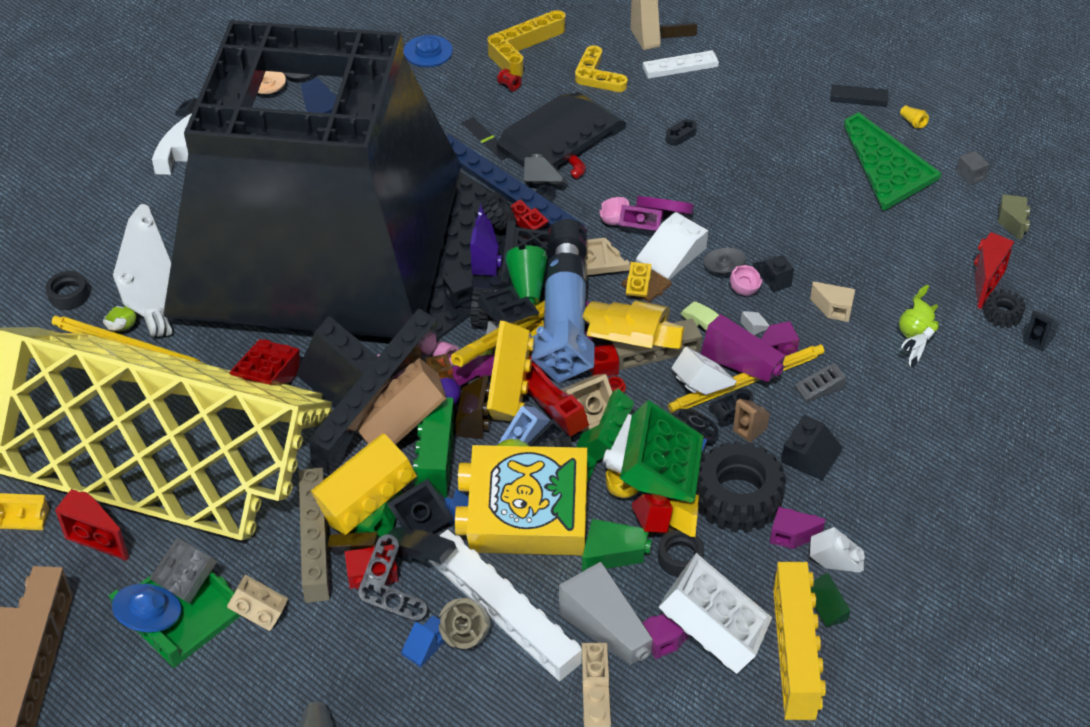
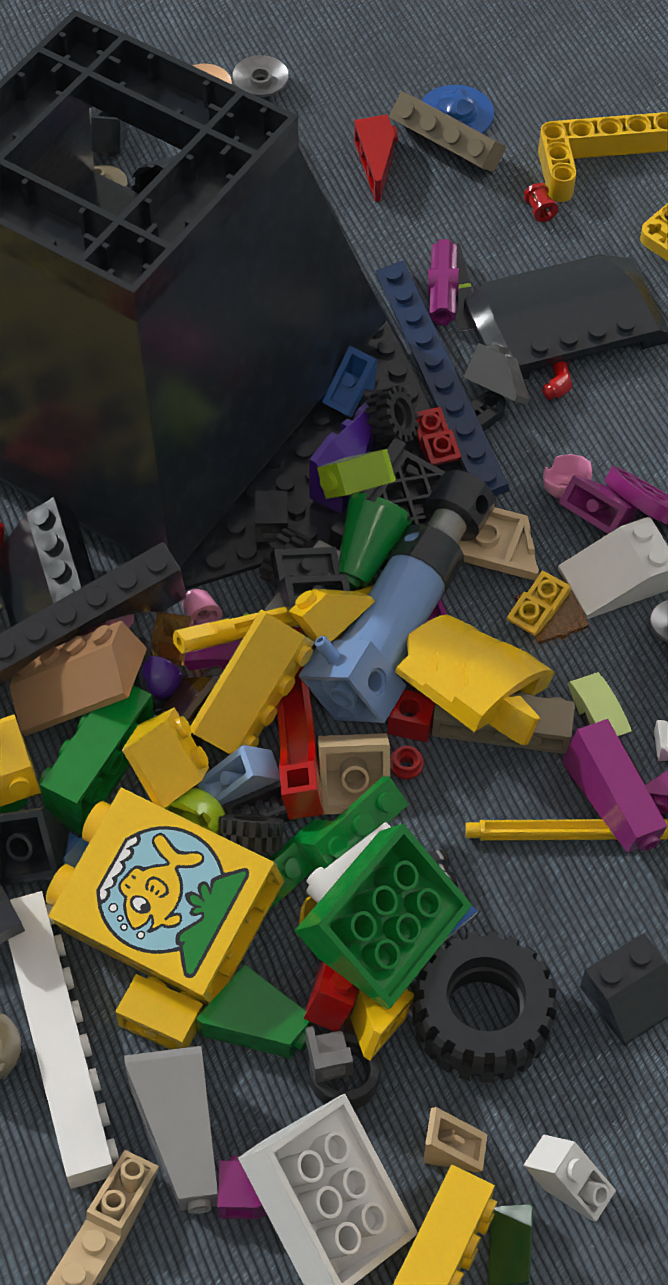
camera: 25 degrees right, 10 degrees up
(438, 59) = (447, 131): none -> dark tan brick
(461, 202) = (351, 380): none -> blue slope
(479, 137) = (443, 282): none -> magenta piece
(484, 423) = (166, 757): none -> yellow slope
(502, 241) = (356, 473): none -> lime slope
(532, 315) = (328, 611): none -> yellow slope
(555, 566) = (159, 1013): none -> yellow brick
(669, 544) = (328, 1055): none -> flat silver panel
(698, 424) = (481, 876): black wheel -> none
(701, 373) = (539, 796): white slope -> none
(727, 408) = (552, 869): black piece -> none
(750, 420) = (567, 902): medium nougat slope -> none
(760, 562) = (454, 1142): none -> tan slope
(795, 528) = (529, 1108): magenta slope -> none

